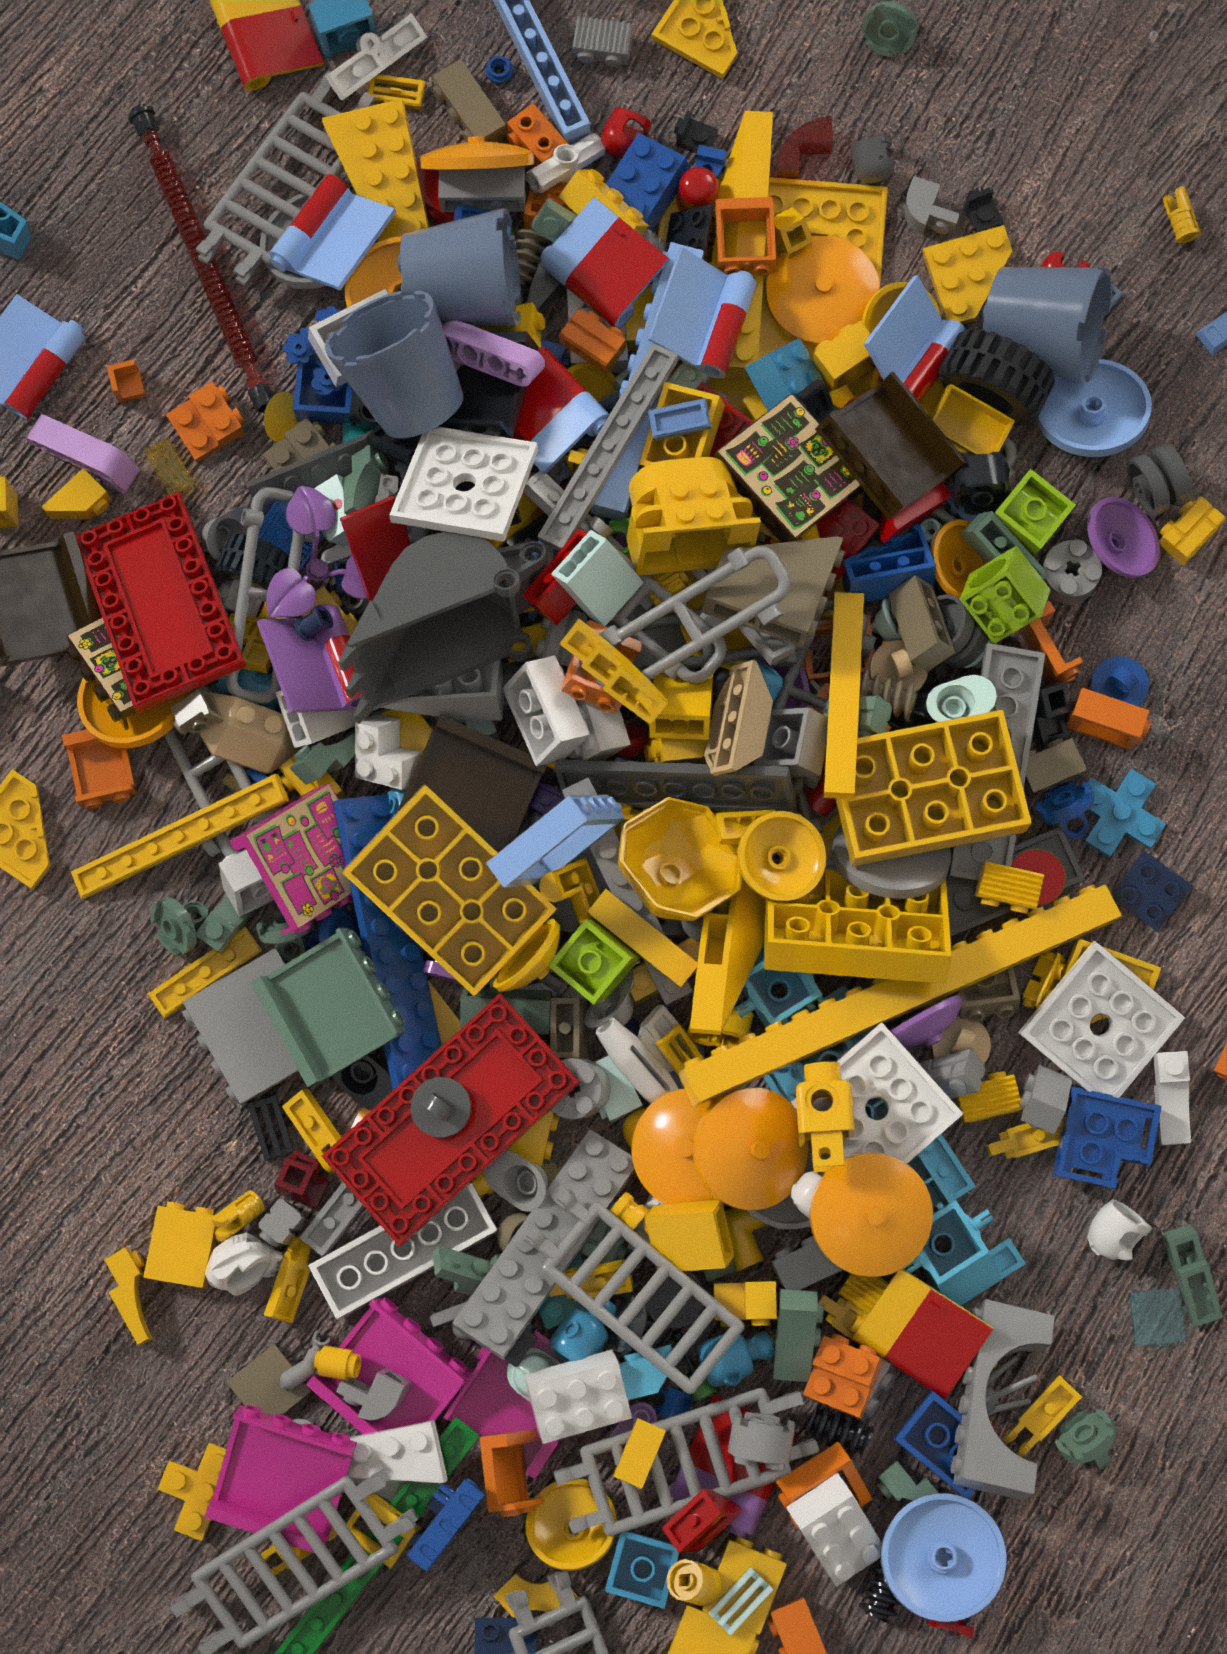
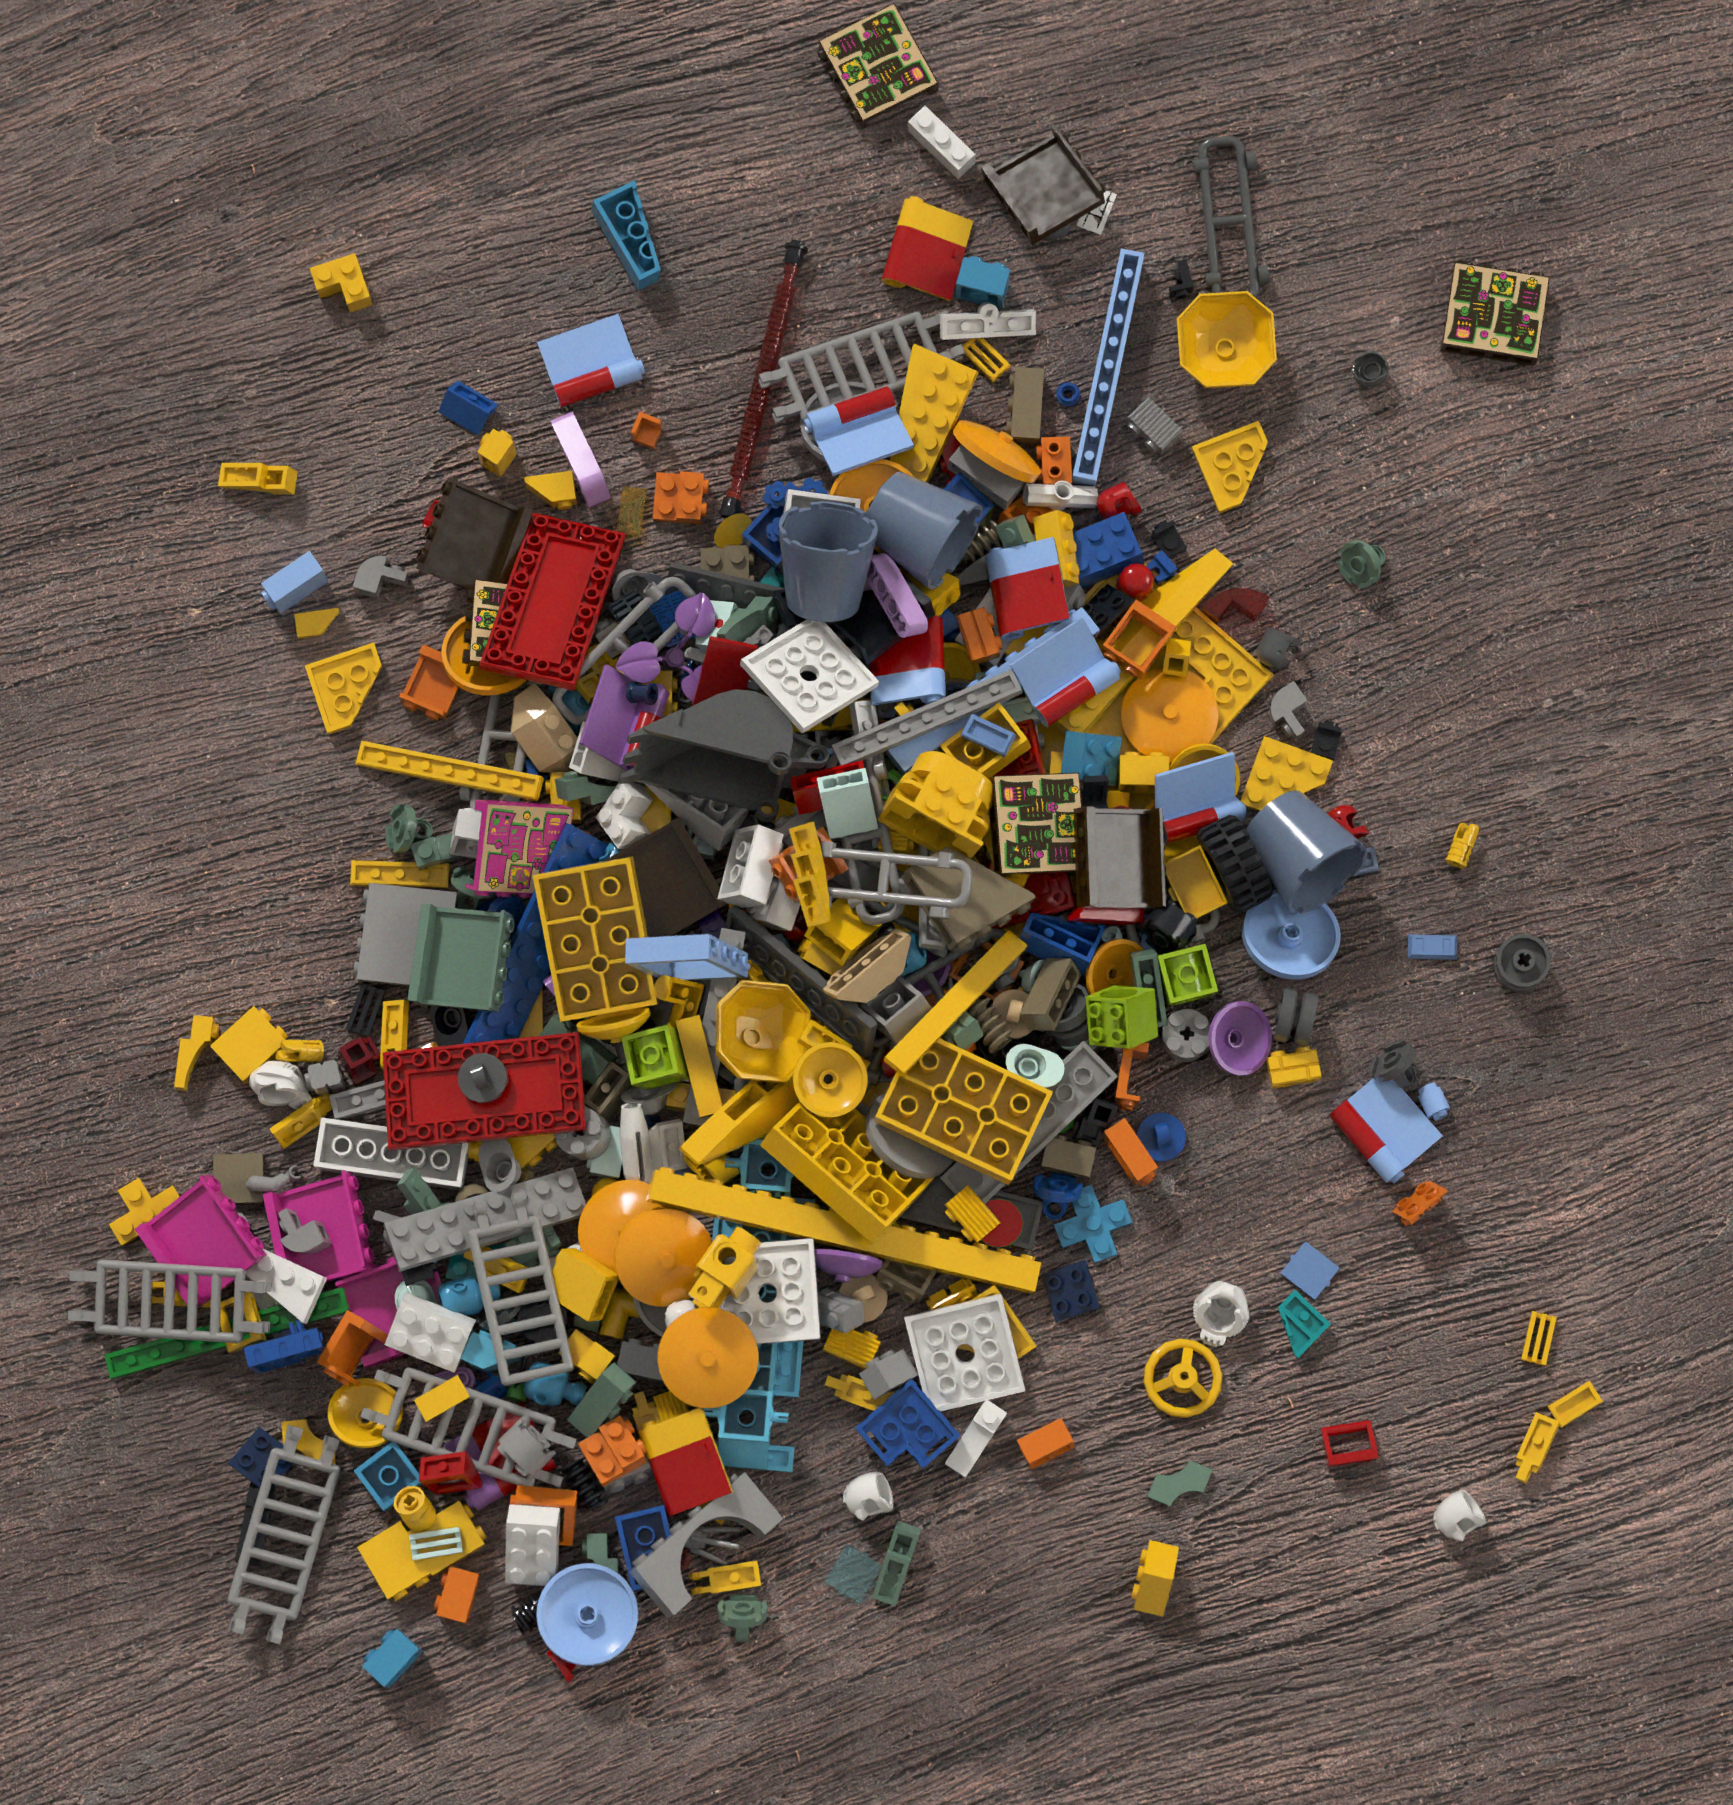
camera: 35 degrees right, 0 degrees up
(196, 713) = (519, 696): dark tan brick -> none
(337, 1363) = (293, 1195): yellow brick -> none
(629, 1211) = (555, 1238): yellow wheel -> none
(669, 1038) = (669, 1146): yellow tile -> none

